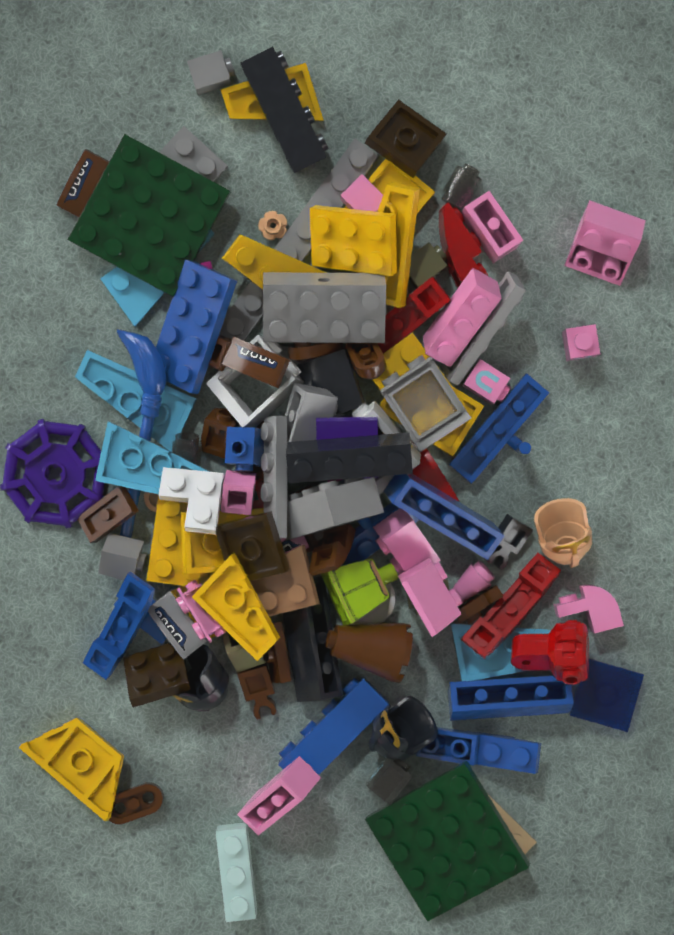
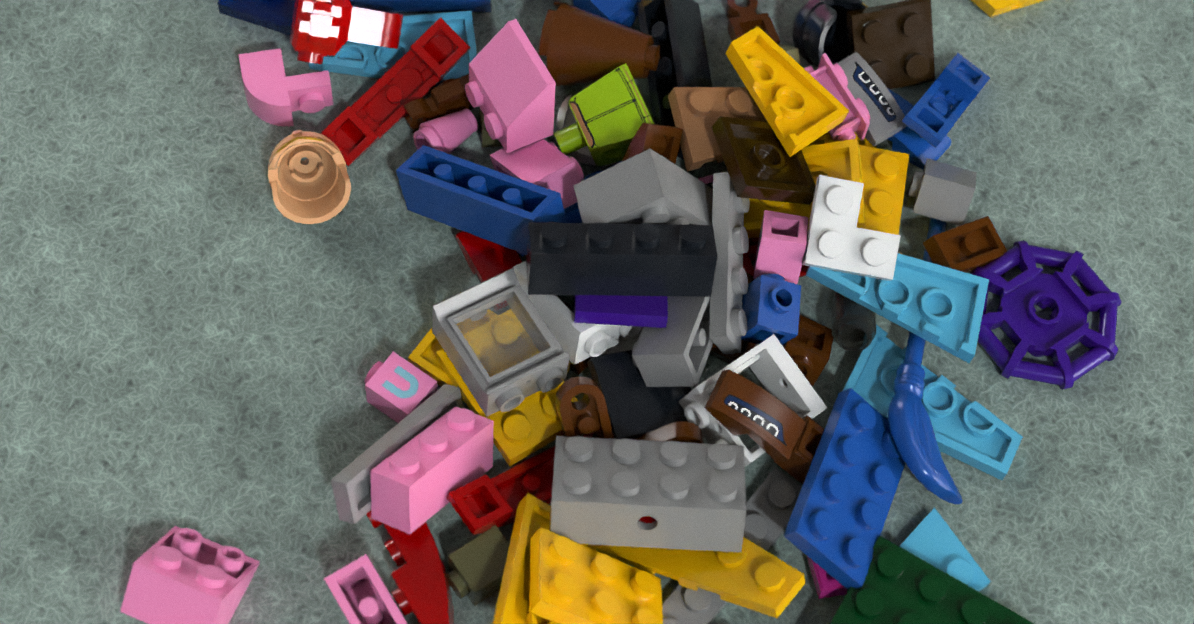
camera: 175 degrees right, 25 degrees down
(278, 658) = (719, 42): reddish brown plate -> none
(500, 429) = (383, 327): blue plate -> none
(515, 536) = (381, 186): black plate -> none
(581, 342) = (249, 435): bright pink brick -> none

